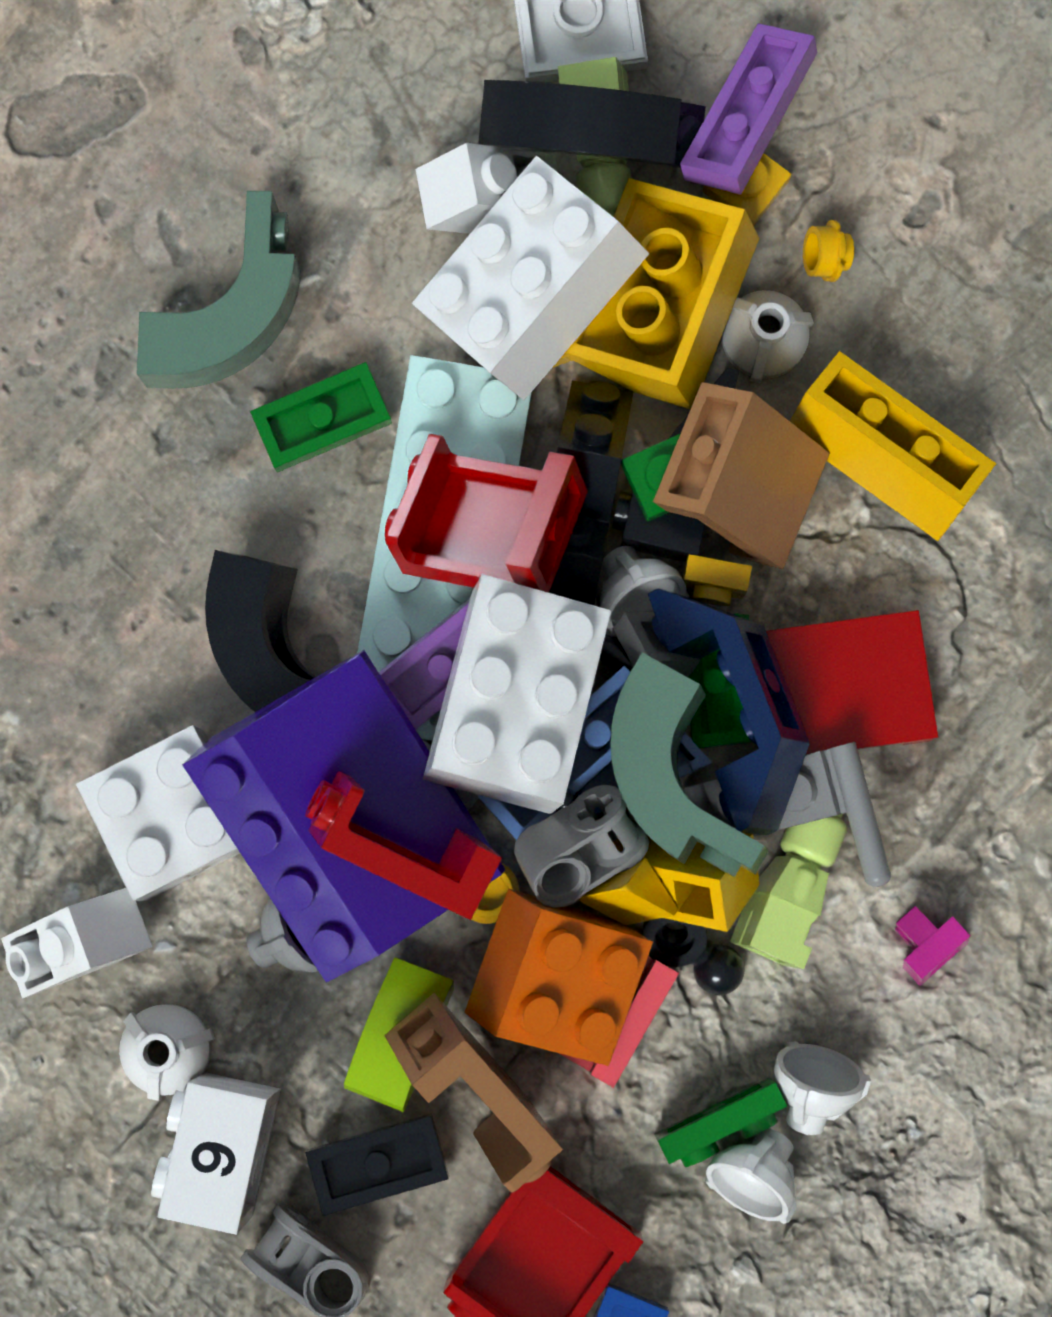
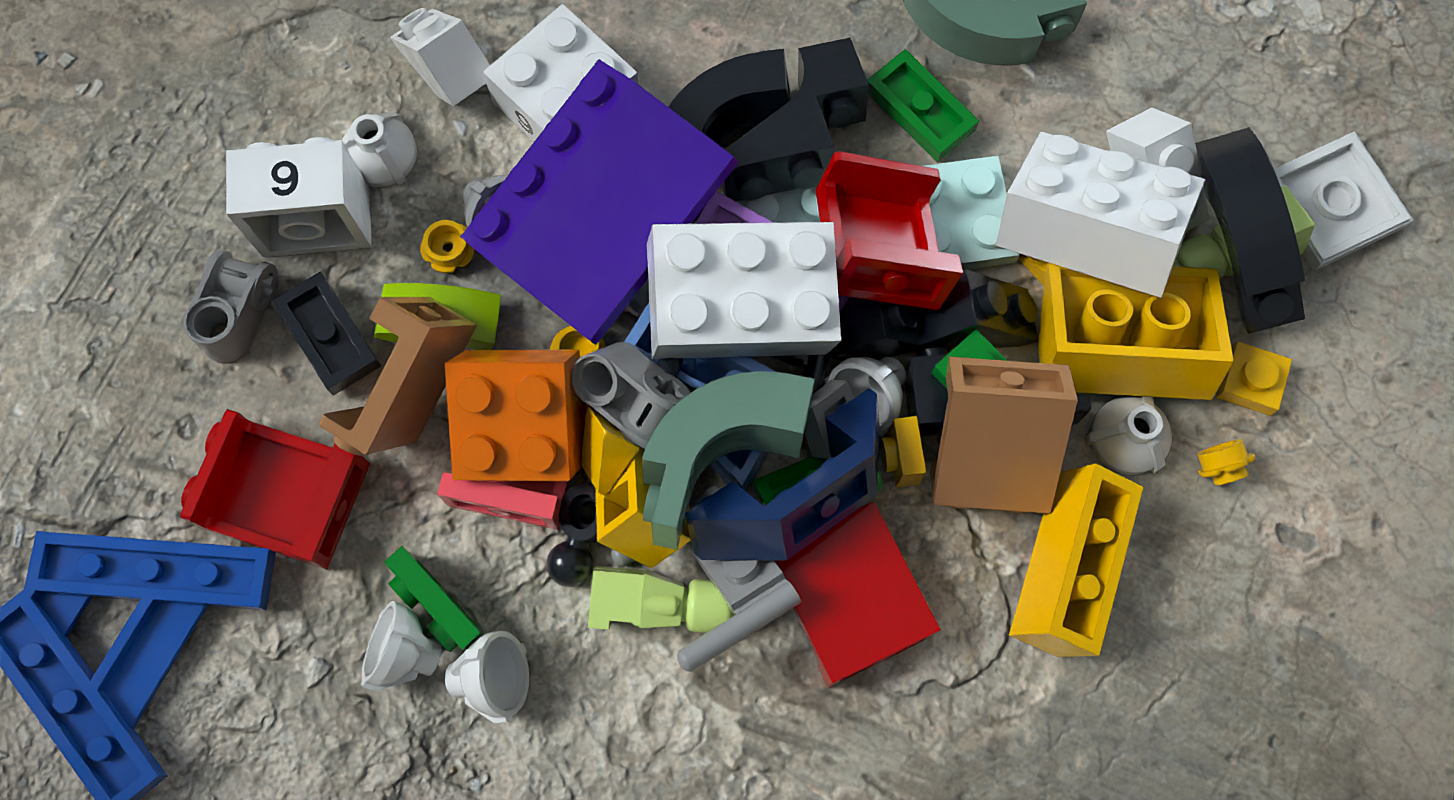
camera: 70 degrees right, 10 degrees down
(311, 1019) = (439, 235): none -> yellow plate
(334, 574) = (794, 142): none -> black arch
(453, 883) = (566, 219): red panel -> none
(749, 108) = (1320, 352): medium lavender plate -> none
(930, 945) = (644, 742): dark pink tile -> none

